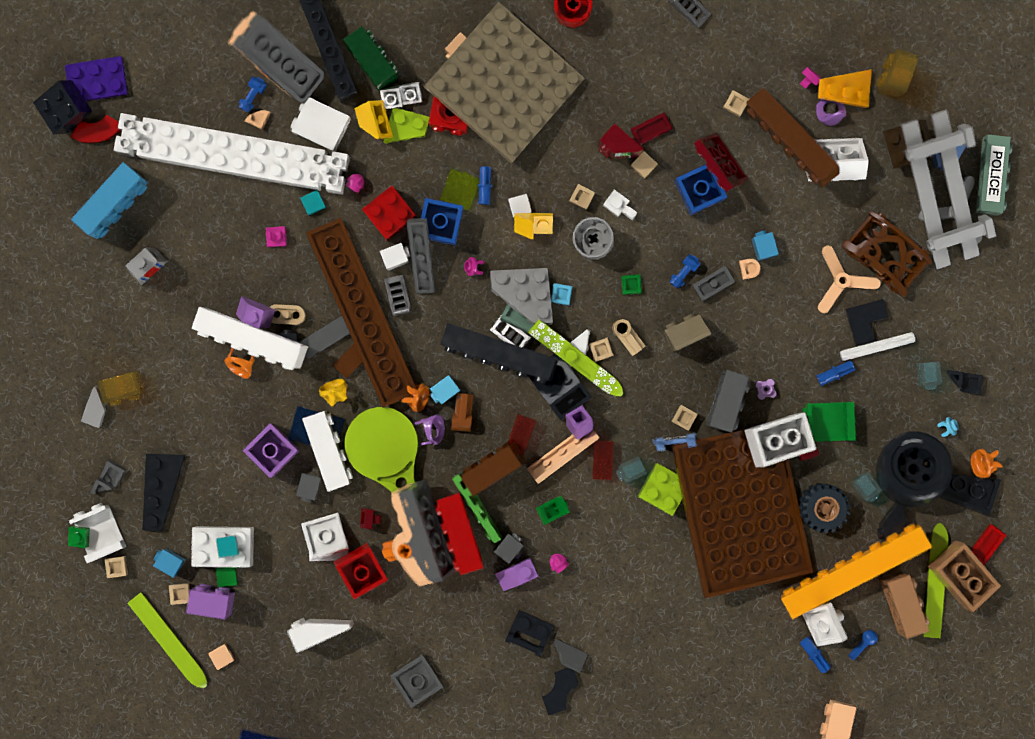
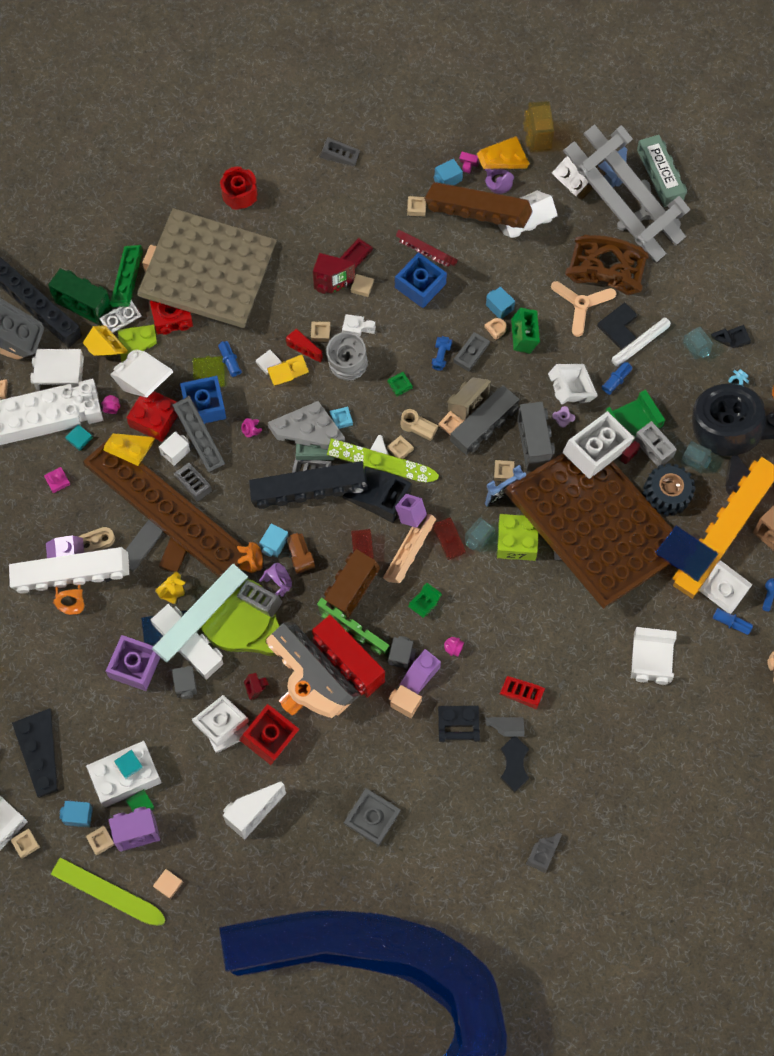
camera: 25 degrees left, 20 degrees down
(347, 434) = (199, 613): none -> light aqua tile
(353, 237) = (129, 447): none -> yellow wing
(393, 171) = (140, 373): none -> white slope
(416, 454) = (269, 605): none -> flat silver slope
(425, 53) = (126, 276): none -> green tile
(491, 593) = (405, 701): none -> light nougat brick
(557, 201) = (302, 344): none -> red slope
(610, 642) = (525, 685): none -> red slope
(659, 347) = (450, 422): none -> light nougat tile
(690, 360) = (485, 420): none -> dark grey brick
(727, 653) = (653, 655): none -> white panel
(773, 287) = (525, 330): none -> green brick
(782, 83) = (448, 173): none -> dark azure brick
(788, 365) = (572, 383): none -> white brick
(805, 580) = (686, 553): none -> clear blue piece
(834, 459) = (655, 444): none -> light grey brick

